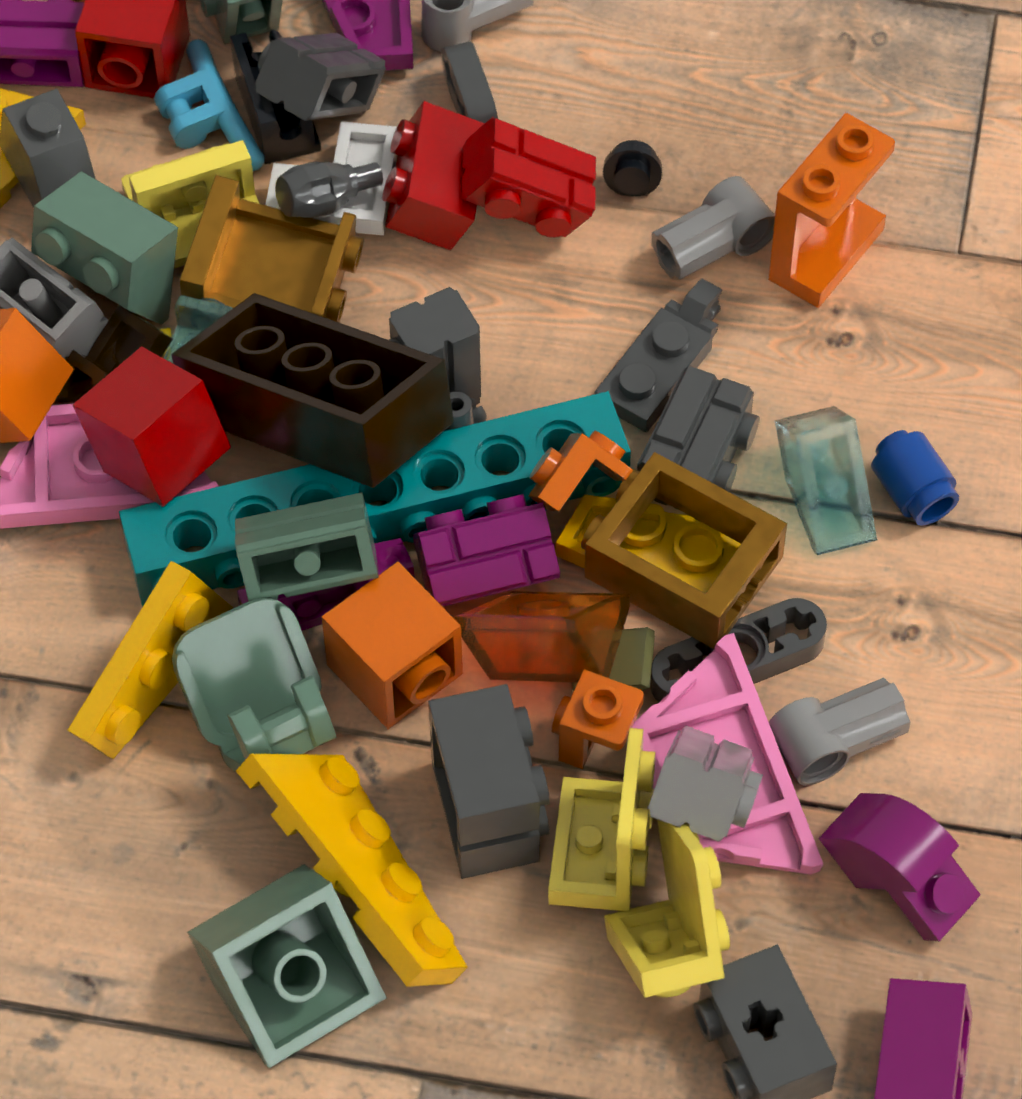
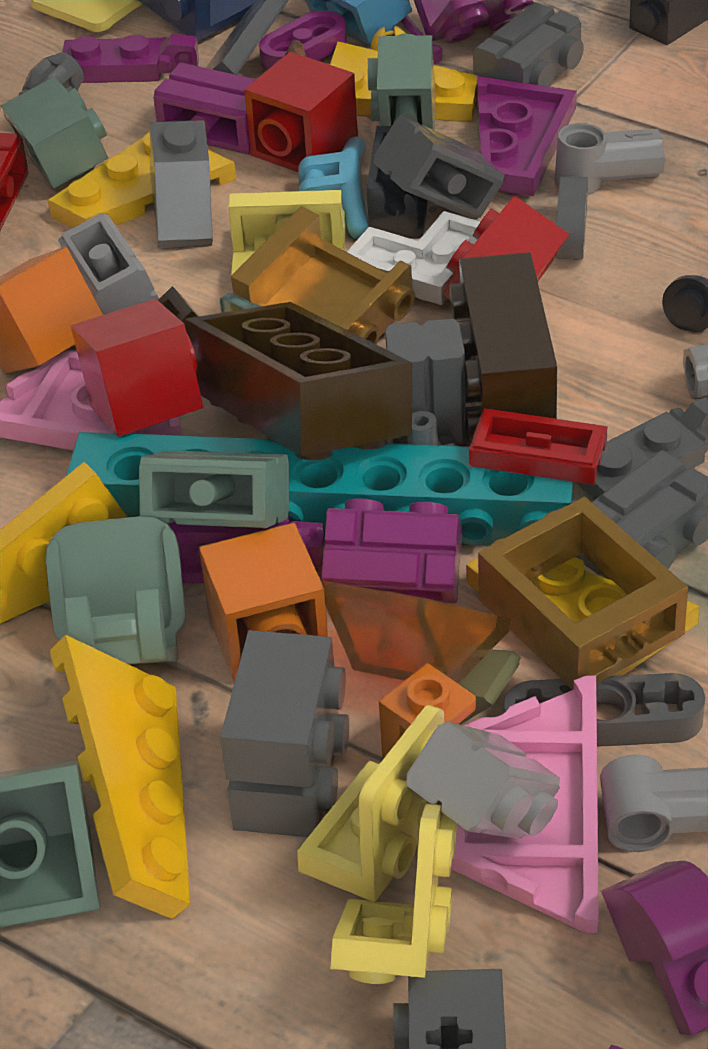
camera: 25 degrees right, 15 degrees down
(108, 244) = (181, 235): sand green slope -> none
(323, 187) = (388, 240): dark grey piece -> none
(519, 311) = (504, 338): none -> dark brown brick
(528, 178) = (588, 277): red brick -> none
(561, 471) = (489, 493): orange bracket -> none
(578, 407) = (538, 446): none -> red tile

